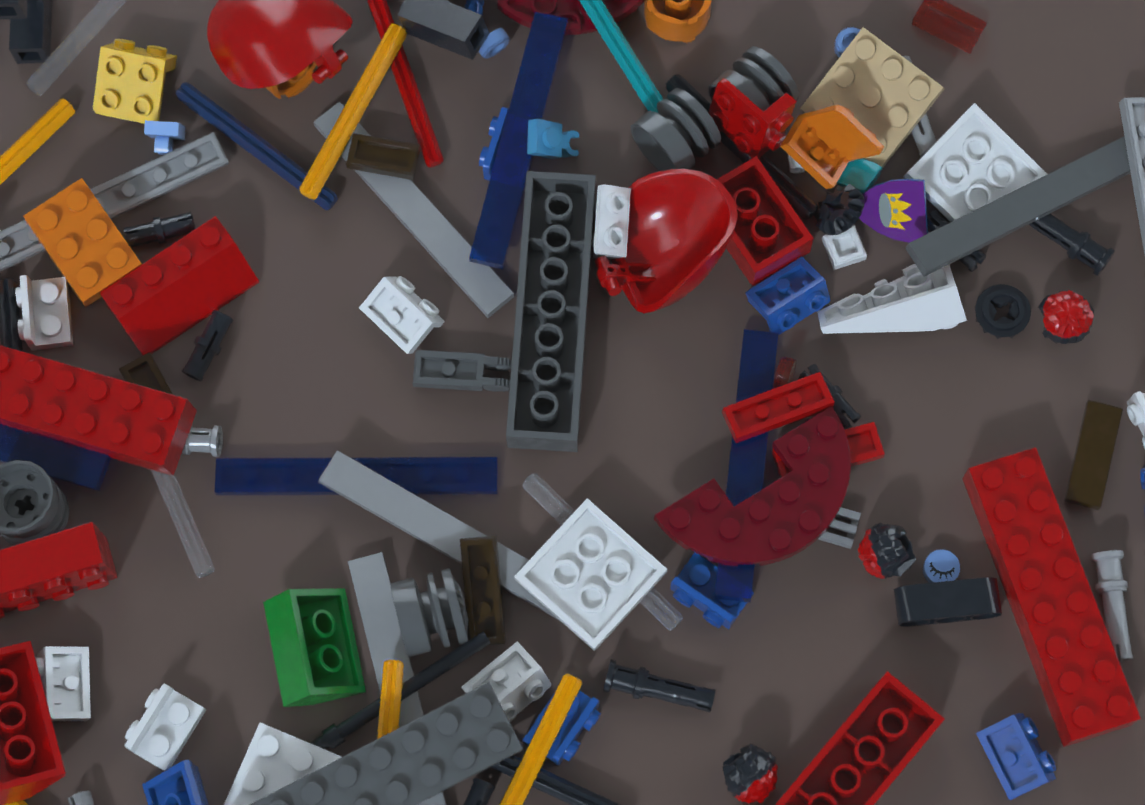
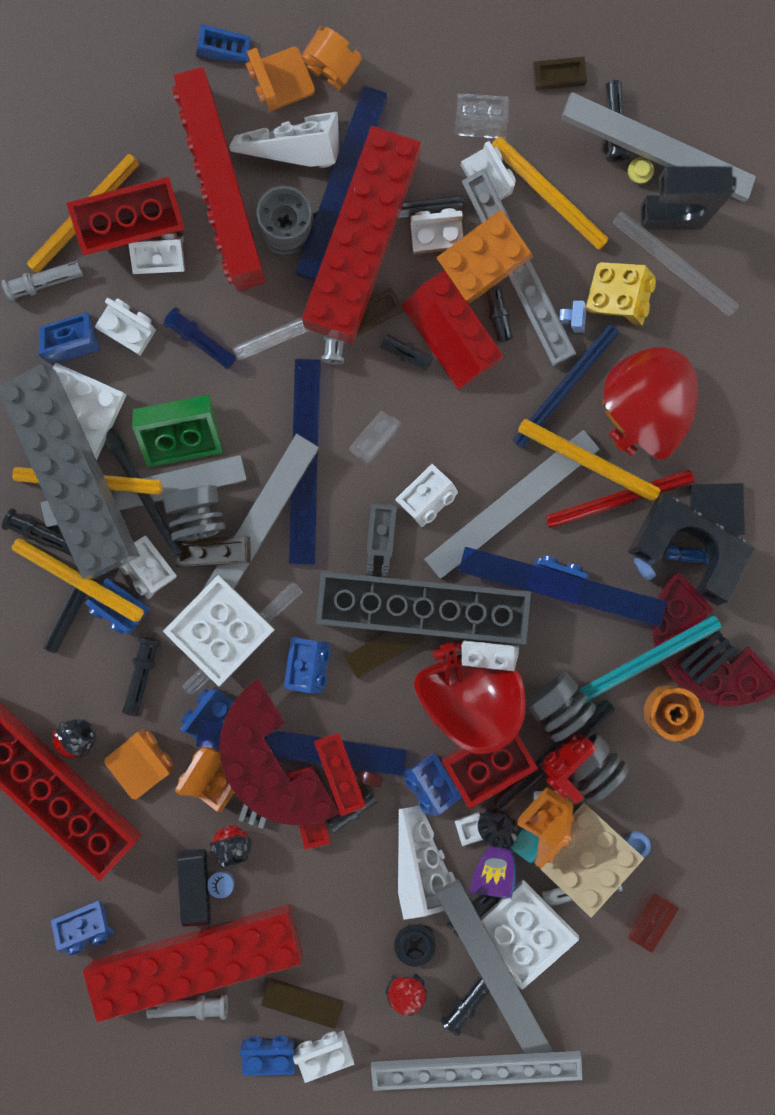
camera: 90 degrees right, 15 degrees up
(212, 586) = (190, 332): none -> clear blue pin
(324, 380) = (374, 437): none -> clear bracket
(383, 156) = (552, 482): dark brown tile -> none
(548, 140) = (559, 609): dark azure plate -> none
(612, 368) = (380, 651): none -> dark brown tile
(635, 461) = (307, 665): none -> blue bracket
(781, 682) = (139, 763): none -> orange bracket
(798, 580) = (206, 779): none -> orange bracket

